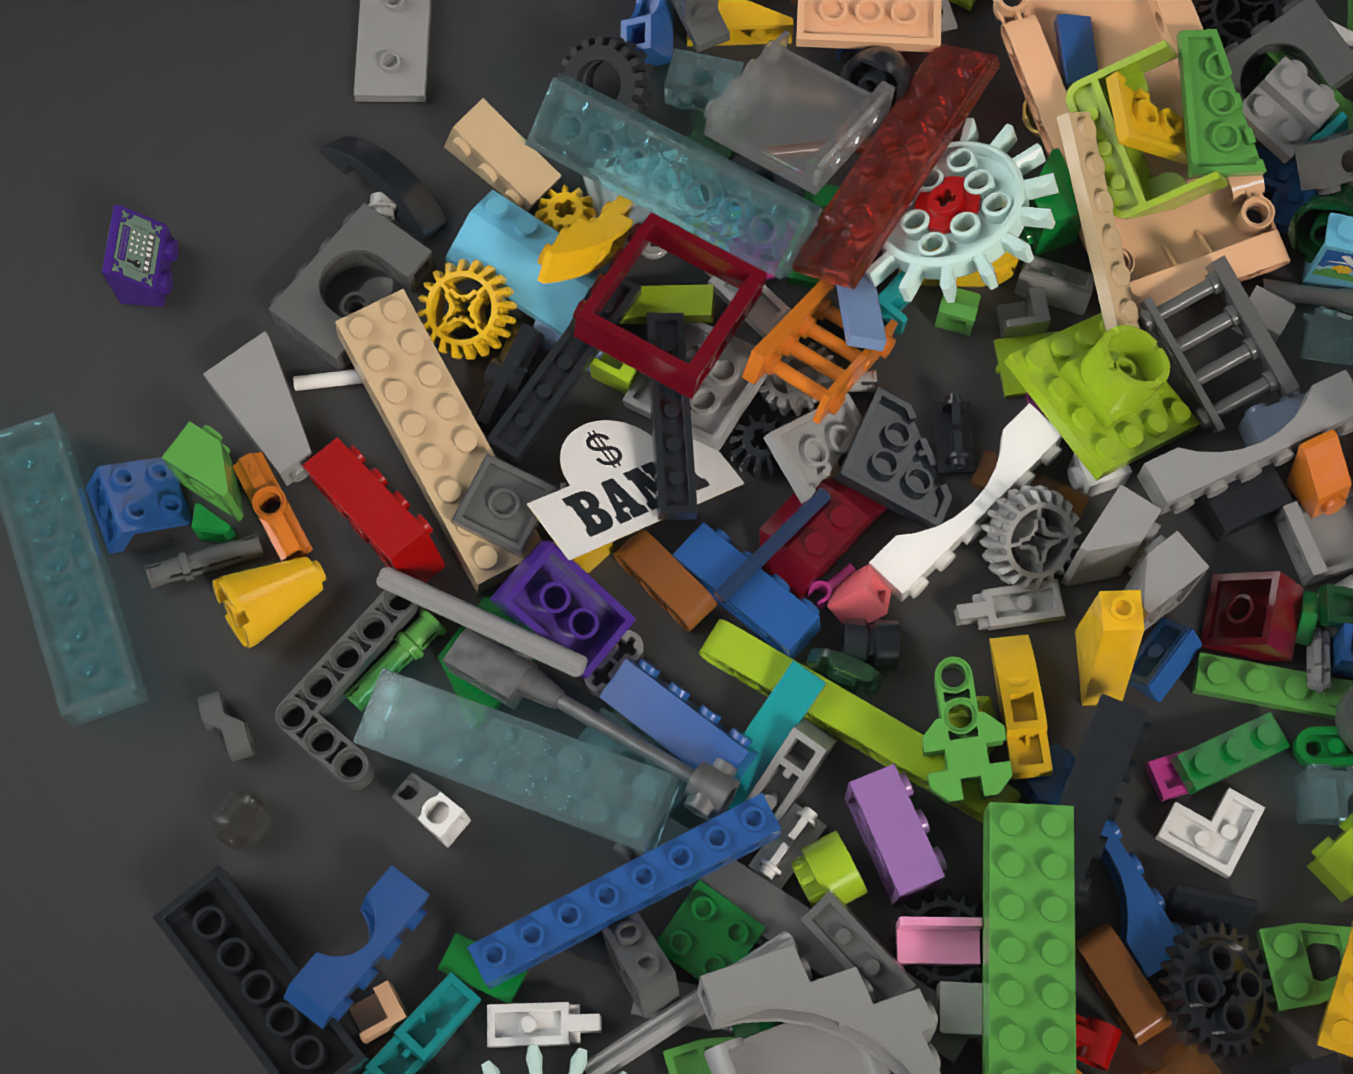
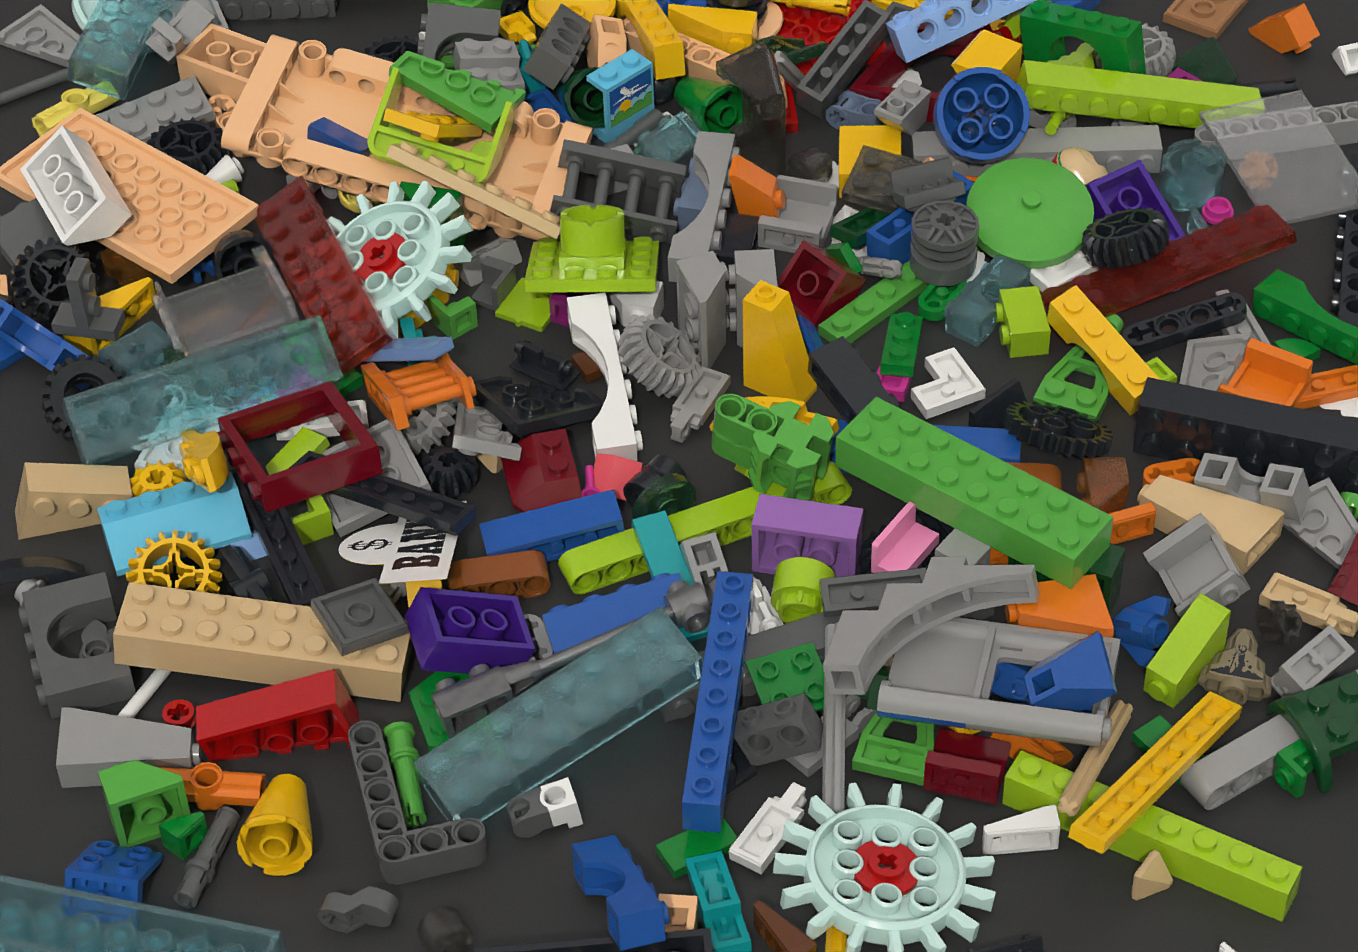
camera: 55 degrees left, 25 degrees down
(342, 417) = (175, 709): none -> red bush
(482, 621) = (434, 676): light grey axle -> none
(772, 545) = (536, 489): dark blue bar -> none

